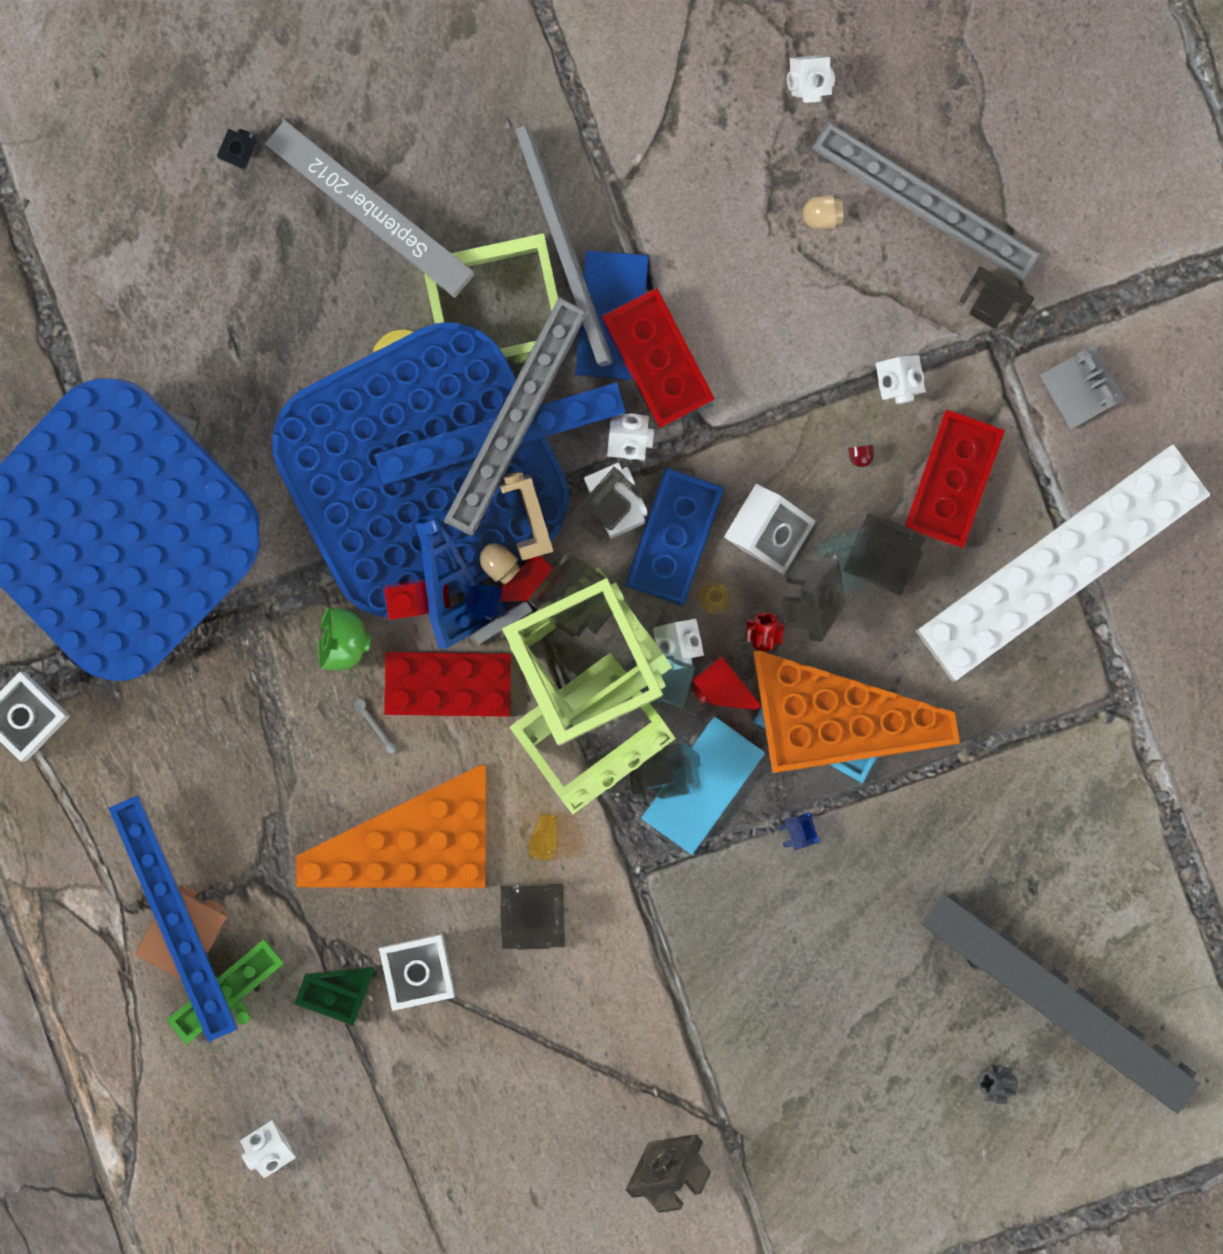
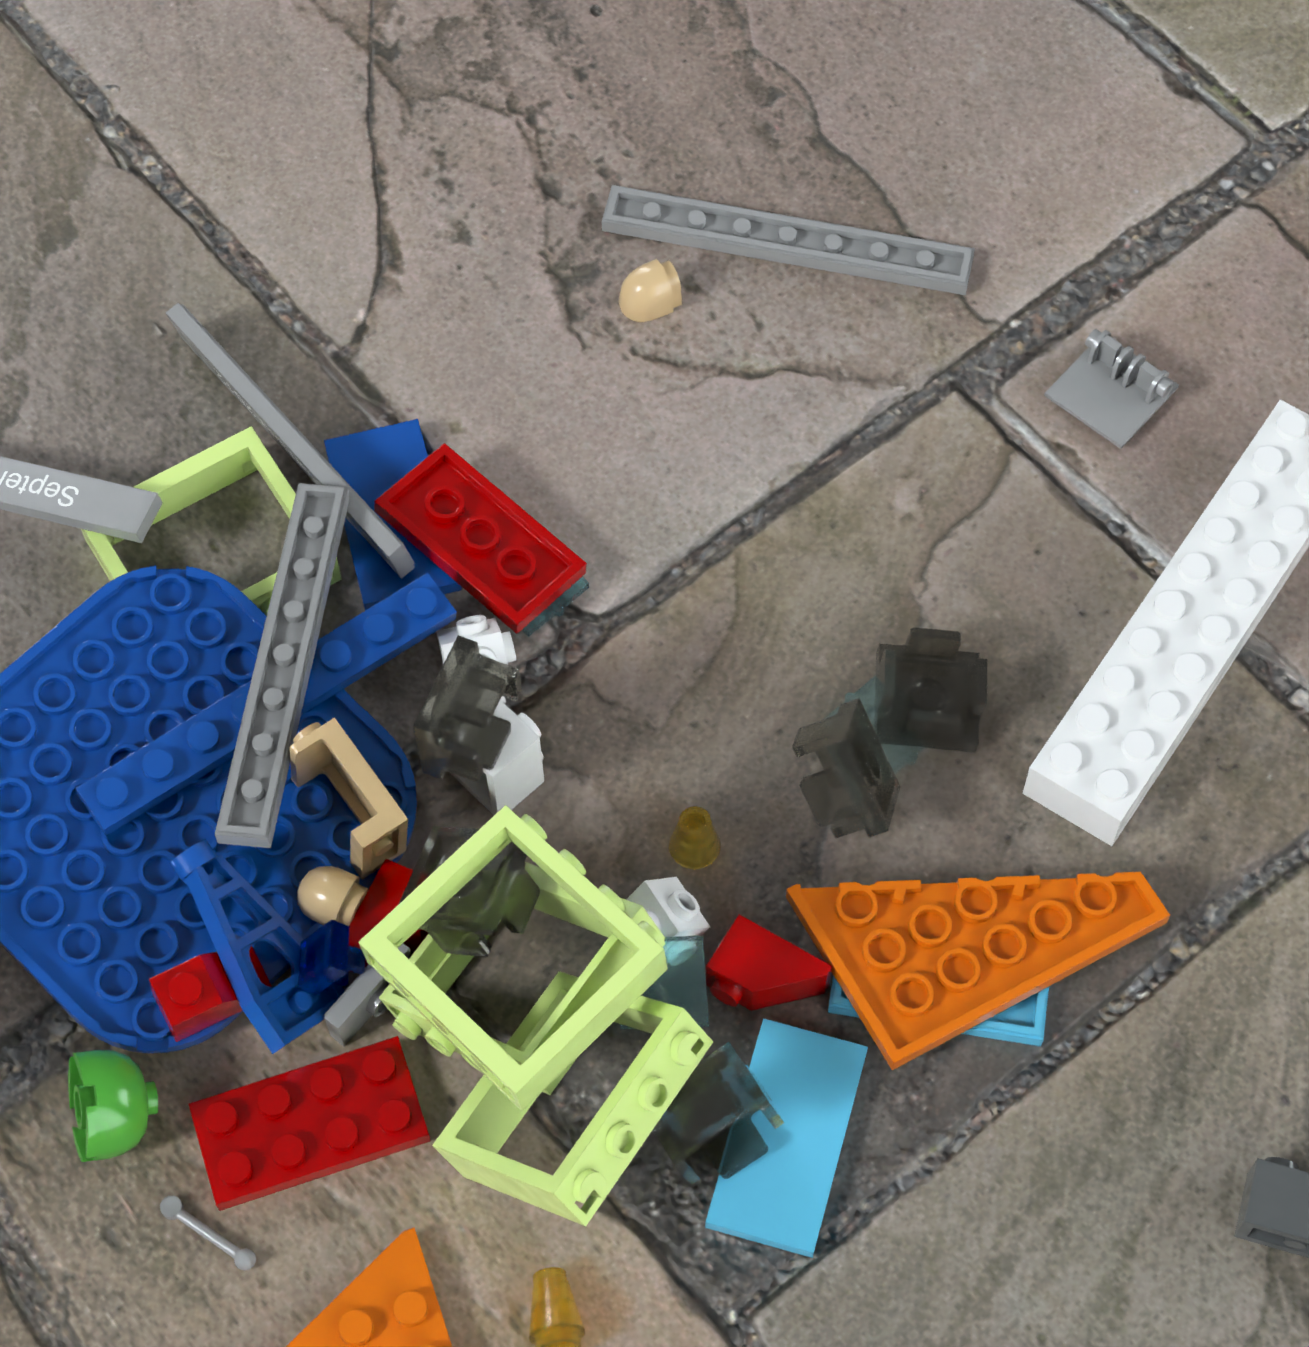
camera: 15 degrees left, 25 degrees down
(674, 536) = (600, 778): blue tile -> none
(764, 631) = (792, 860): red gear -> none
(770, 528) = (740, 714): white slope -> none
(801, 831) = (979, 1148): clear blue tile -> none
(810, 77) = (565, 134): white brick -> none
(861, 455) = (834, 573): dark red hinge -> none
(900, 378) = (848, 450): white brick -> none
(954, 478) = (987, 560): red plate -> none
(995, 299) = (939, 303): clear smoke panel -> none

